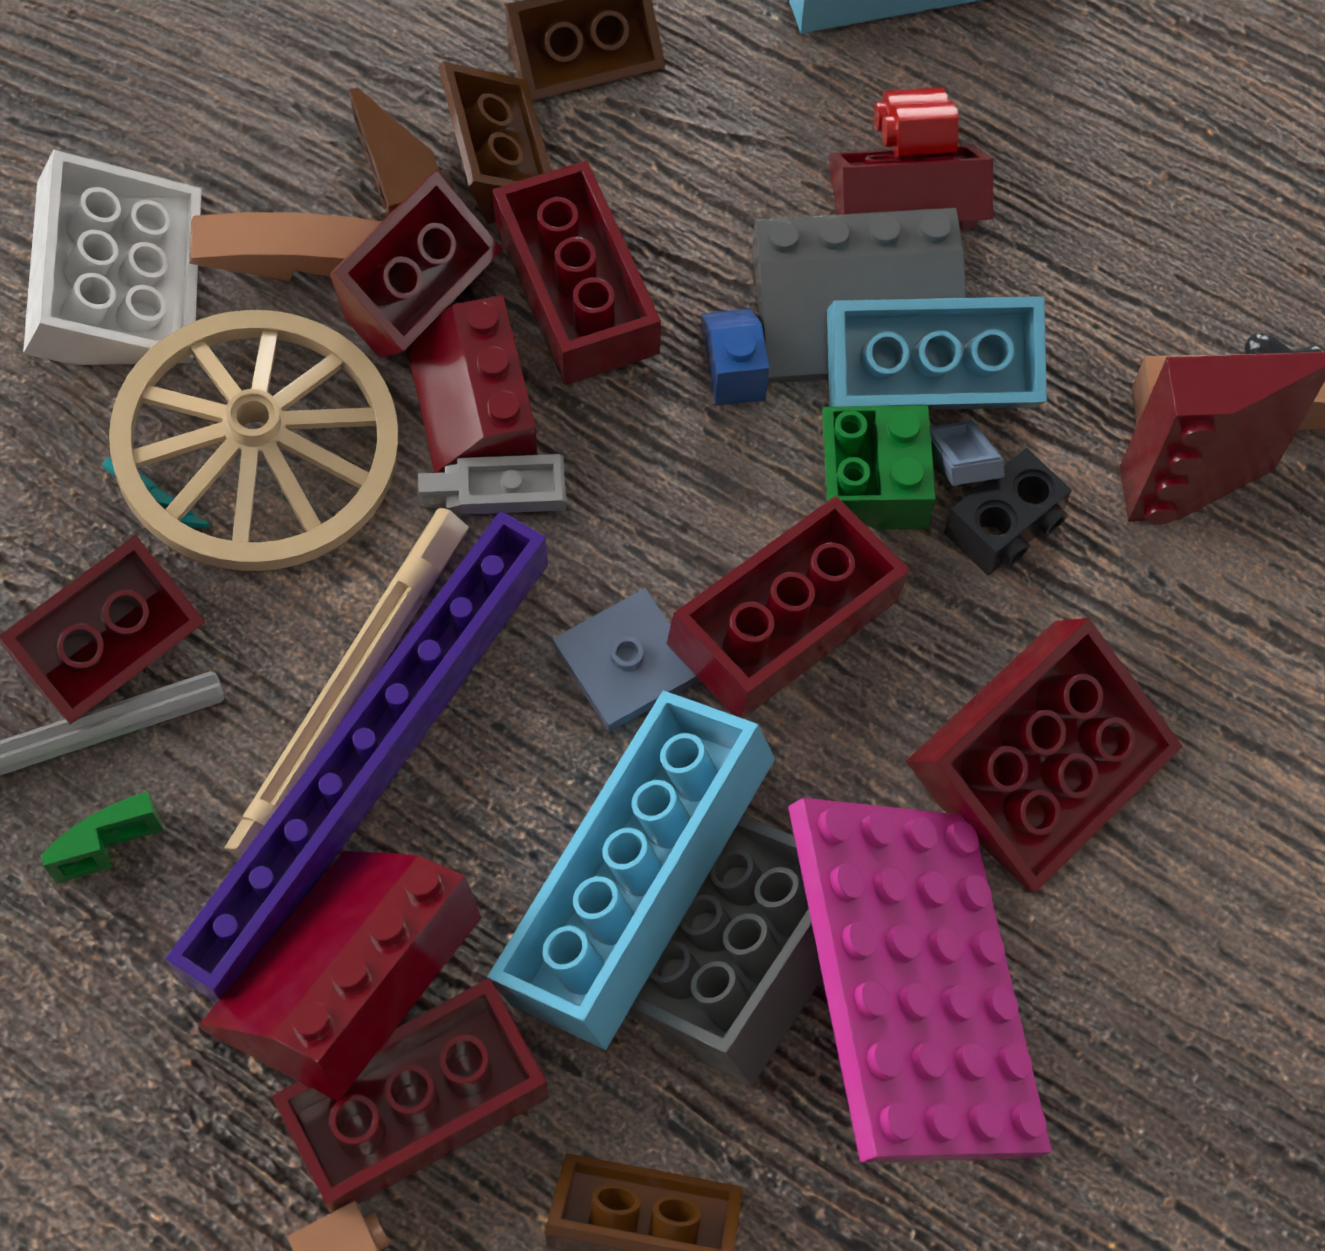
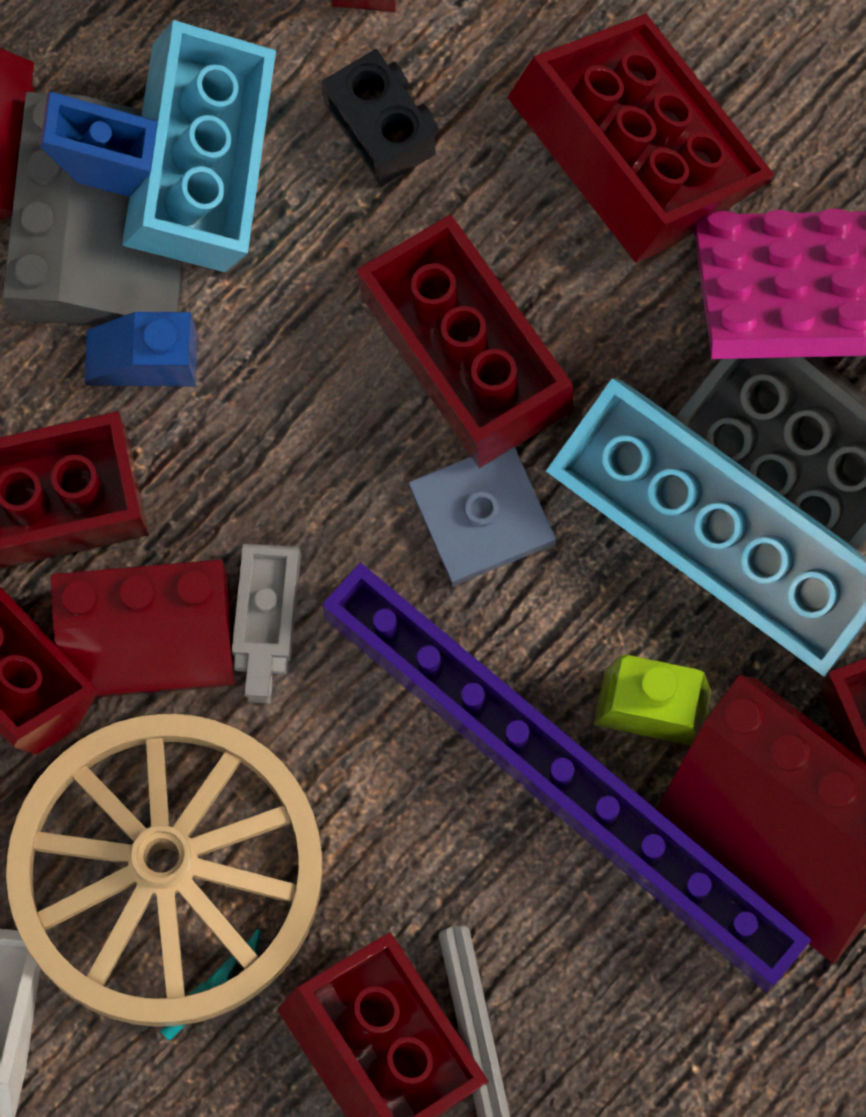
camera: 75 degrees left, 10 degrees up
(86, 845) = (621, 1071): green slope -> none
(355, 670) = (472, 793): tan piece -> none
(453, 822) = (653, 699): none -> lime torso
(880, 463) = (310, 224): green slope -> none
(907, 247) = (98, 143): none -> blue slope
(965, 453) = (312, 144): sand blue tile -> none

